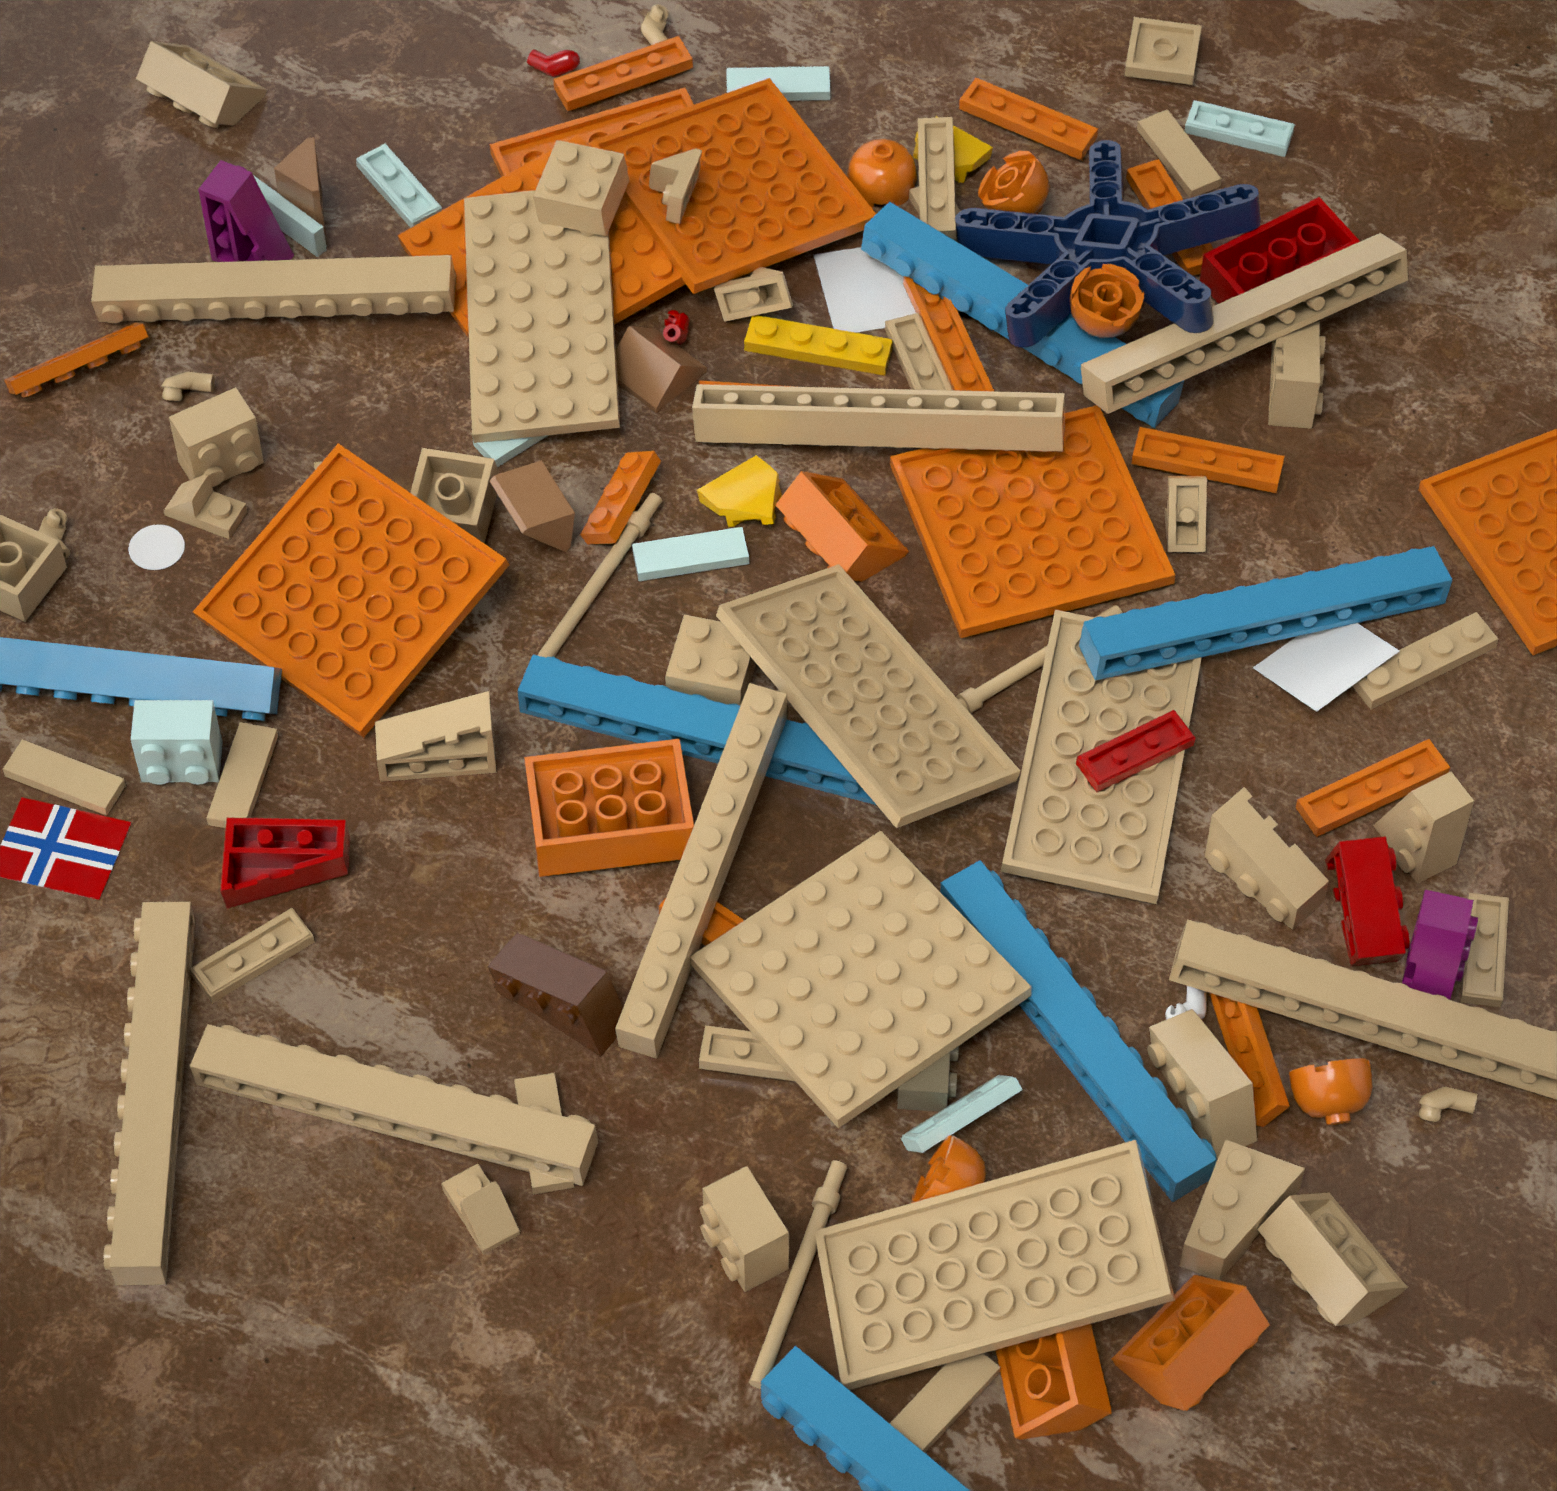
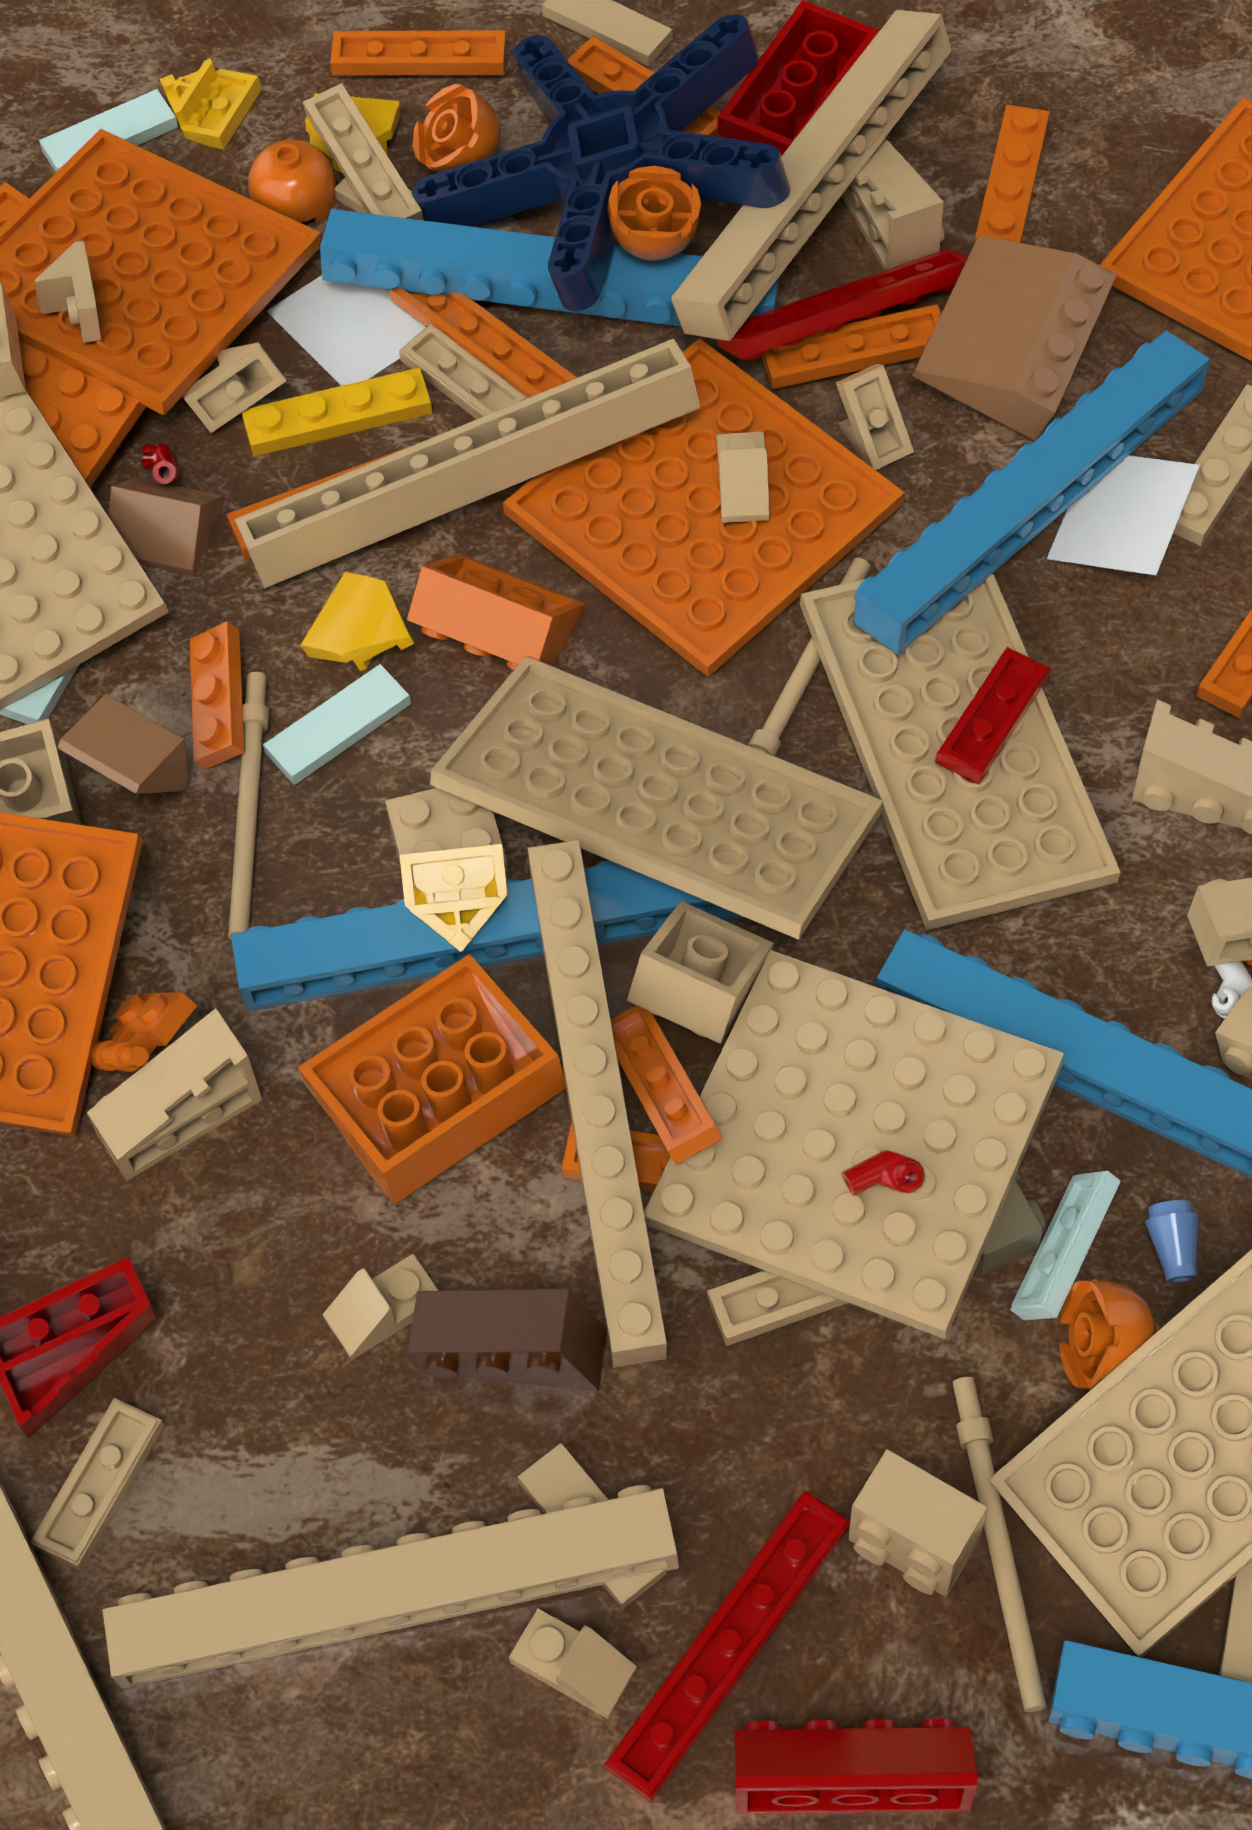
camera: 25 degrees left, 5 degrees up
(444, 685) = (141, 1026): none -> orange plate
(485, 935) = (376, 1307): none -> tan slope
(584, 1248) = (727, 1646): none -> red tile
(612, 1355) = (854, 1768): none -> red slope
(693, 692) = (455, 889): none -> yellow slope
(753, 879) = (662, 1085): none -> orange plate
(822, 819) = (698, 971): none -> tan brick
(860, 999) = (887, 1170): none -> red arm
(862, 92) = (211, 102): none -> yellow slope
(1039, 1143) = (1174, 1237): none -> medium blue cone
(1064, 512) = (743, 477): none -> tan slope
(1229, 427) = (853, 300): none -> red plate
(1326, 498) = (1014, 330): none -> medium nougat slope
(1402, 393) = (1013, 173): none -> orange plate

